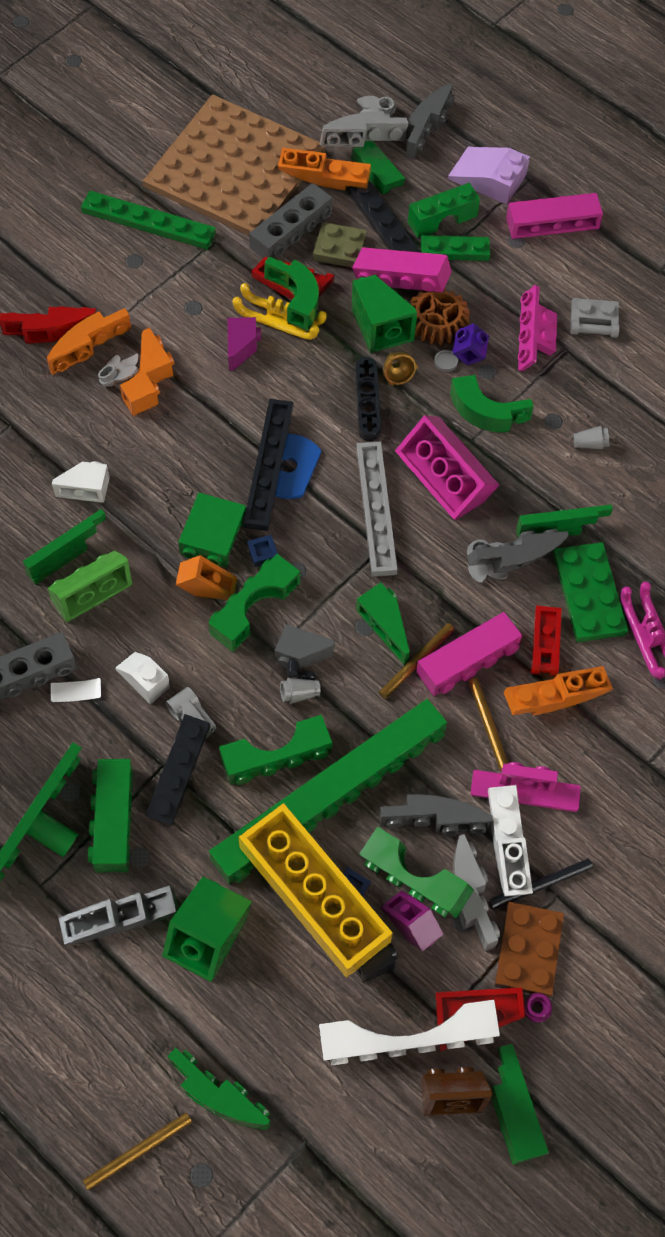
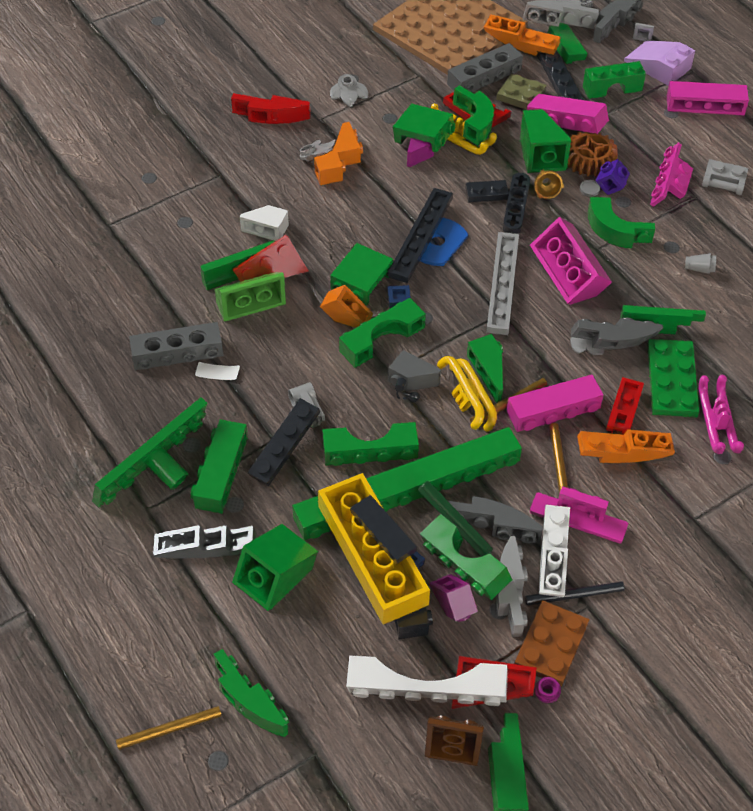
camera: 15 degrees right, 10 degrees down
(79, 341) = (291, 124): orange slope -> none
(108, 533) = (276, 257): none -> wing
(136, 282) = (348, 91): none -> light grey plate
(144, 676) = (277, 370): white slope -> none
(148, 220) = (371, 52): green plate -> none
(240, 317) = (425, 125): none -> green panel
(298, 690) = (402, 403): light grey cone -> none
(324, 871) = (383, 529): none -> black tile
(330, 388) = (486, 191): none -> black plate
(372, 660) = (469, 392): none -> yellow piece
(394, 827) = (443, 506): none -> dark green axle
(457, 247) = (623, 110): green plate -> none
(462, 137) = (643, 32): none -> light grey slope

